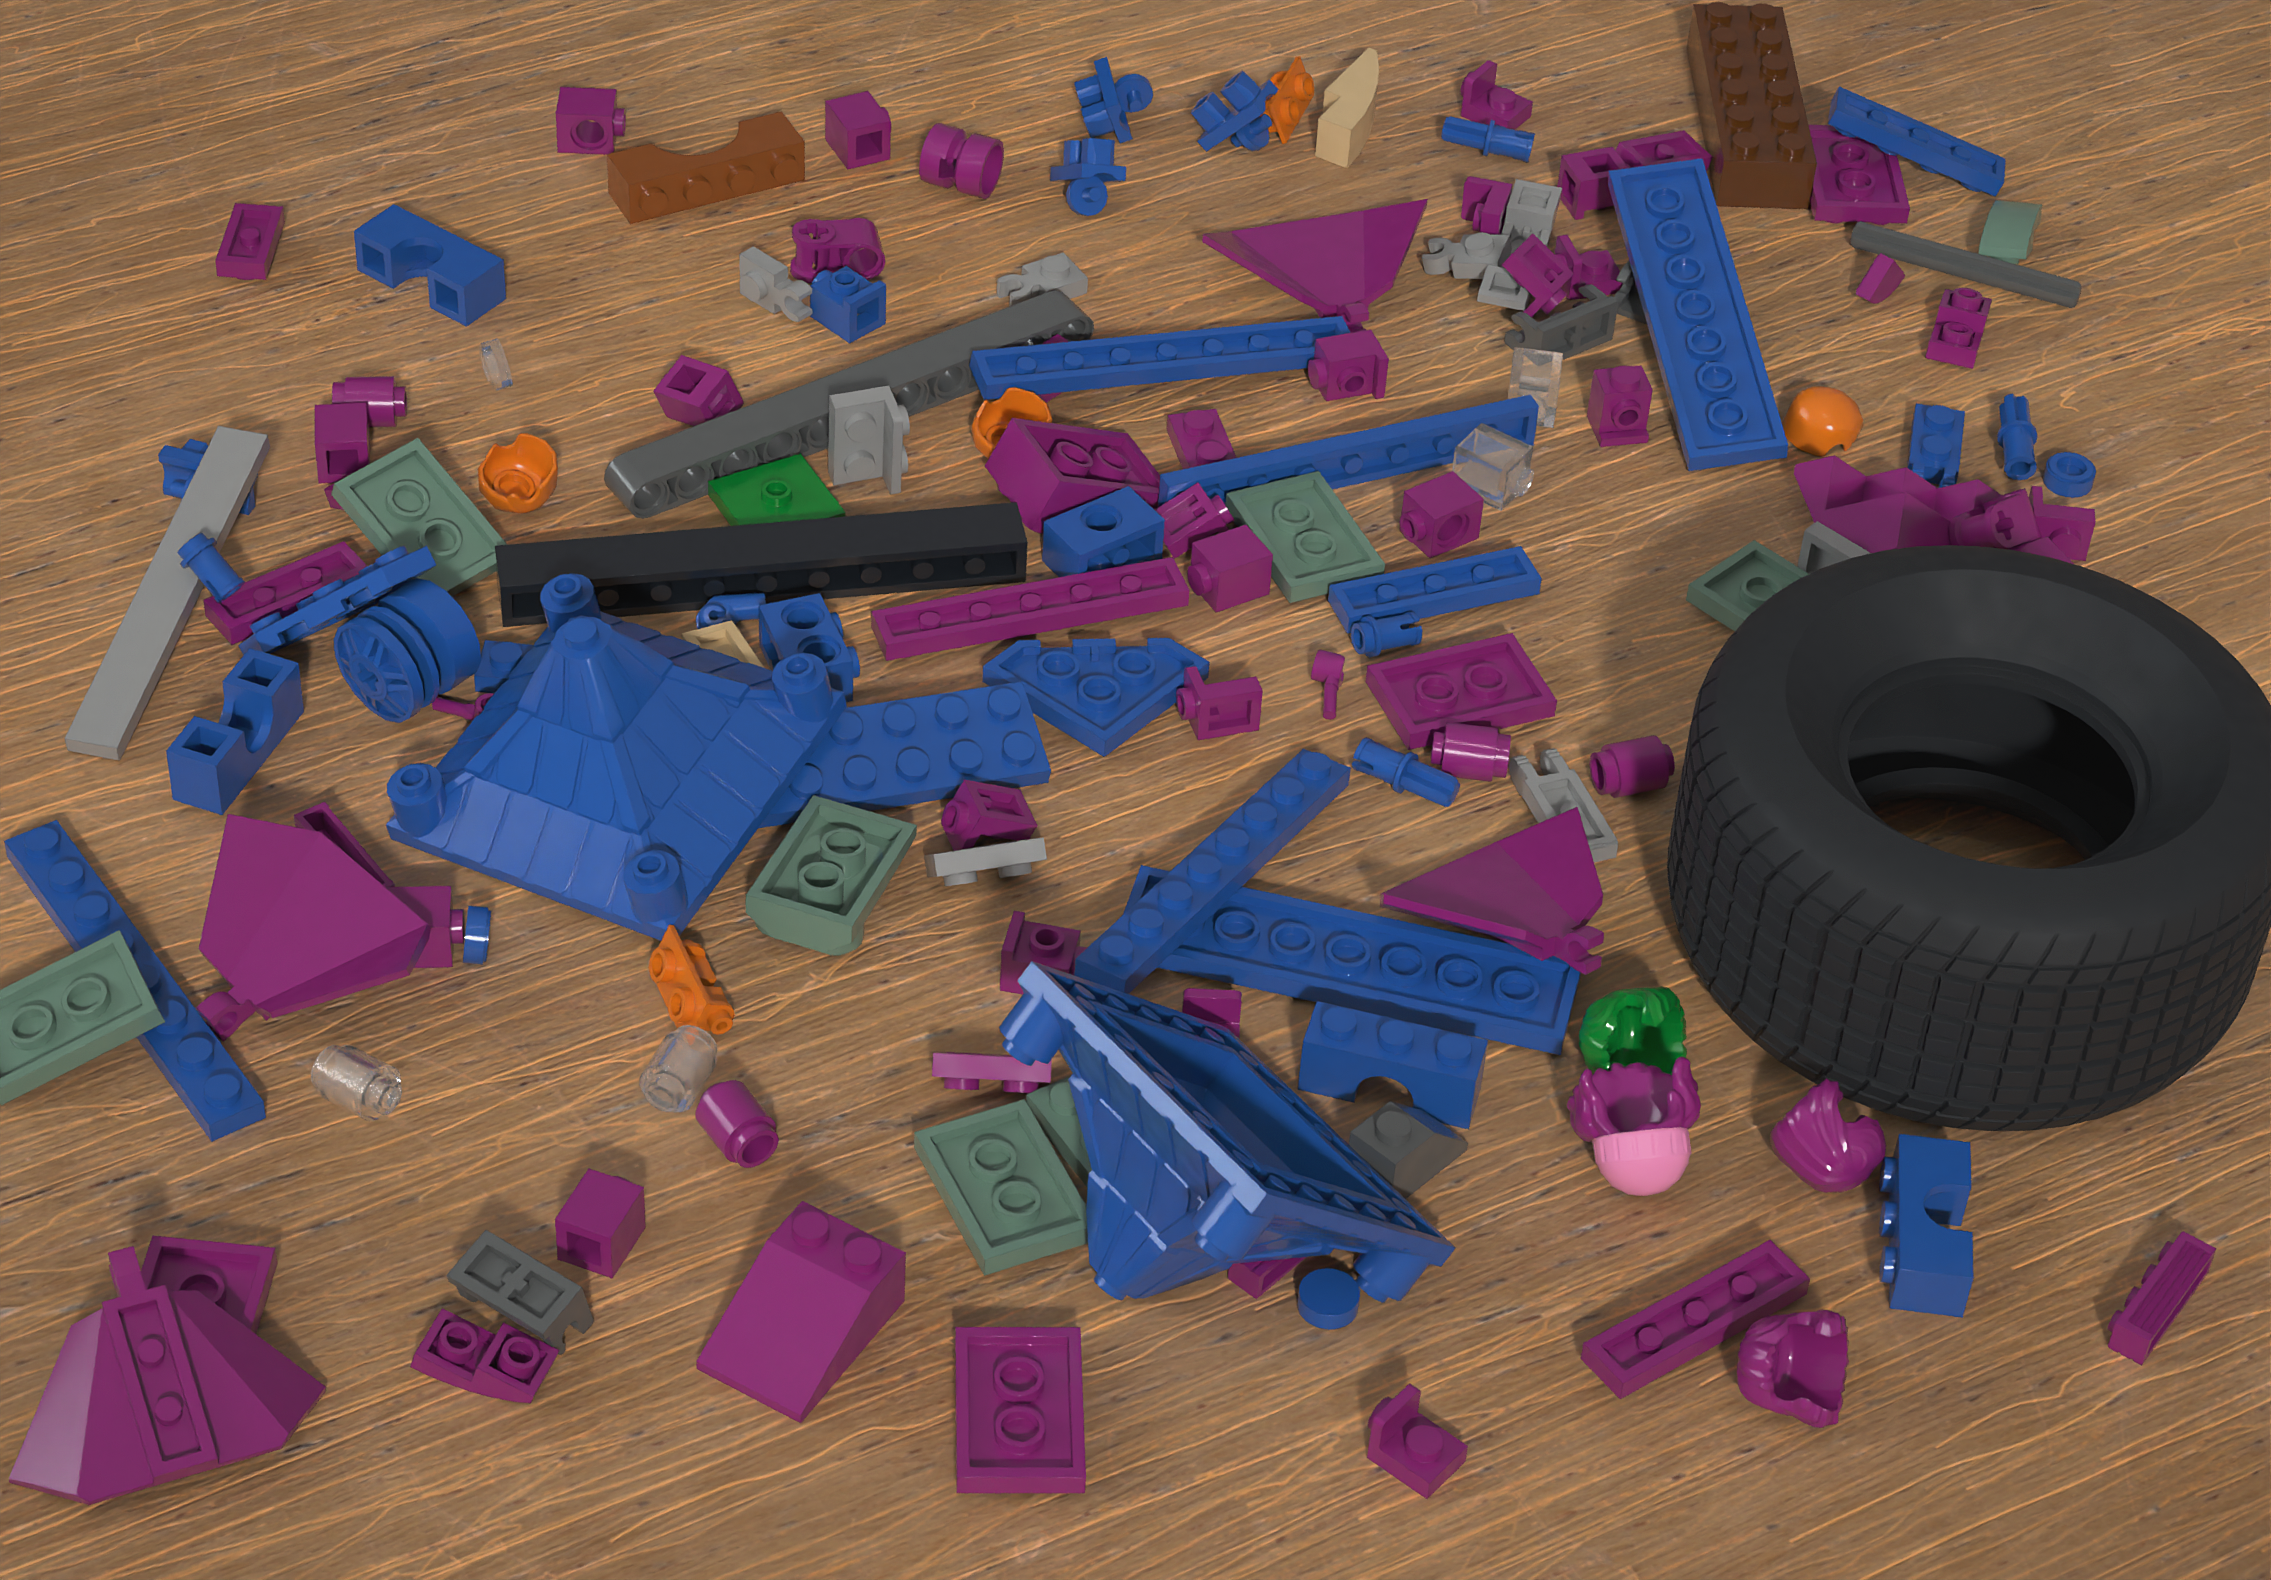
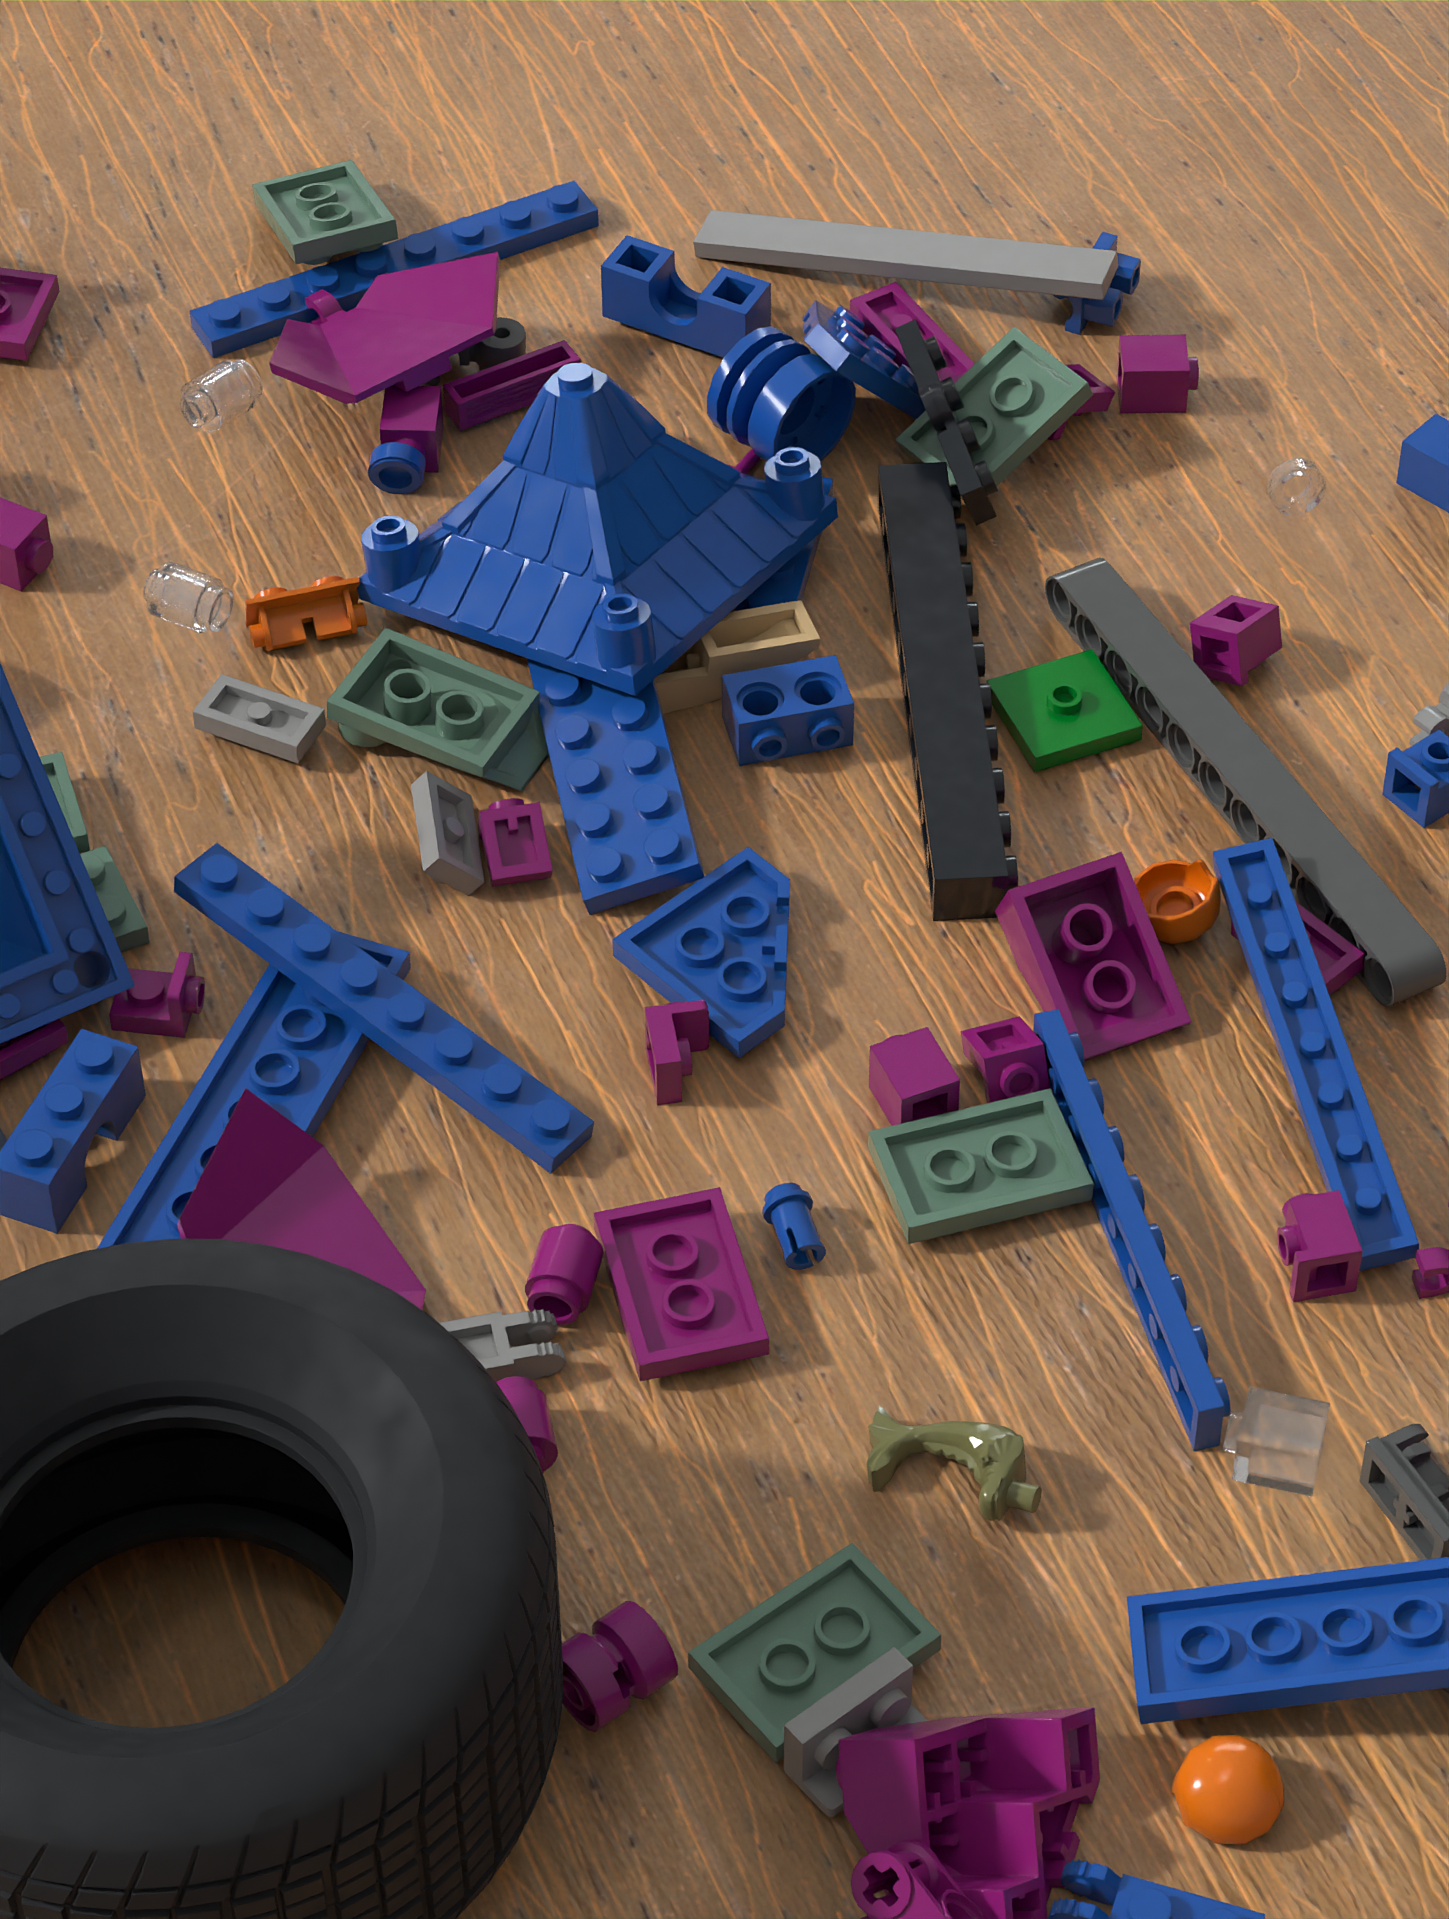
camera: 100 degrees right, 5 degrees up
(210, 567) = (908, 262): blue pin -> none
(381, 393) = (1225, 392): magenta brick -> none
(449, 534) = (955, 436): none -> black hinge
(519, 474) = (1090, 498): orange hair -> none
(730, 607) = (874, 659): blue arm -> none
(737, 1123) = (109, 634): magenta brick -> none
(842, 1003) = (259, 718): none -> light grey plate
(867, 437) = (1124, 758): light grey bracket -> none
(966, 1069) = (143, 818): magenta plate -> none
(1029, 608) = (857, 902): magenta plate -> none
(1038, 943) = (297, 858): magenta brick -> none
(1103, 535) = (971, 967): blue brick -> none
(1199, 438) = (1166, 1095): magenta plate -> none
(1329, 670) = (732, 1172): magenta hand -> none
(1405, 772) = (545, 1210): blue axle -> none
(1437, 587) = (873, 1285): blue plate -> none
(1441, 514) = (1010, 1302): magenta brick -> none
(1494, 465) = (1108, 1370): clear brick -> none
(1580, 524) = (987, 1450): none -> olive animal
(1620, 405) = (1235, 1531): magenta brick -> none

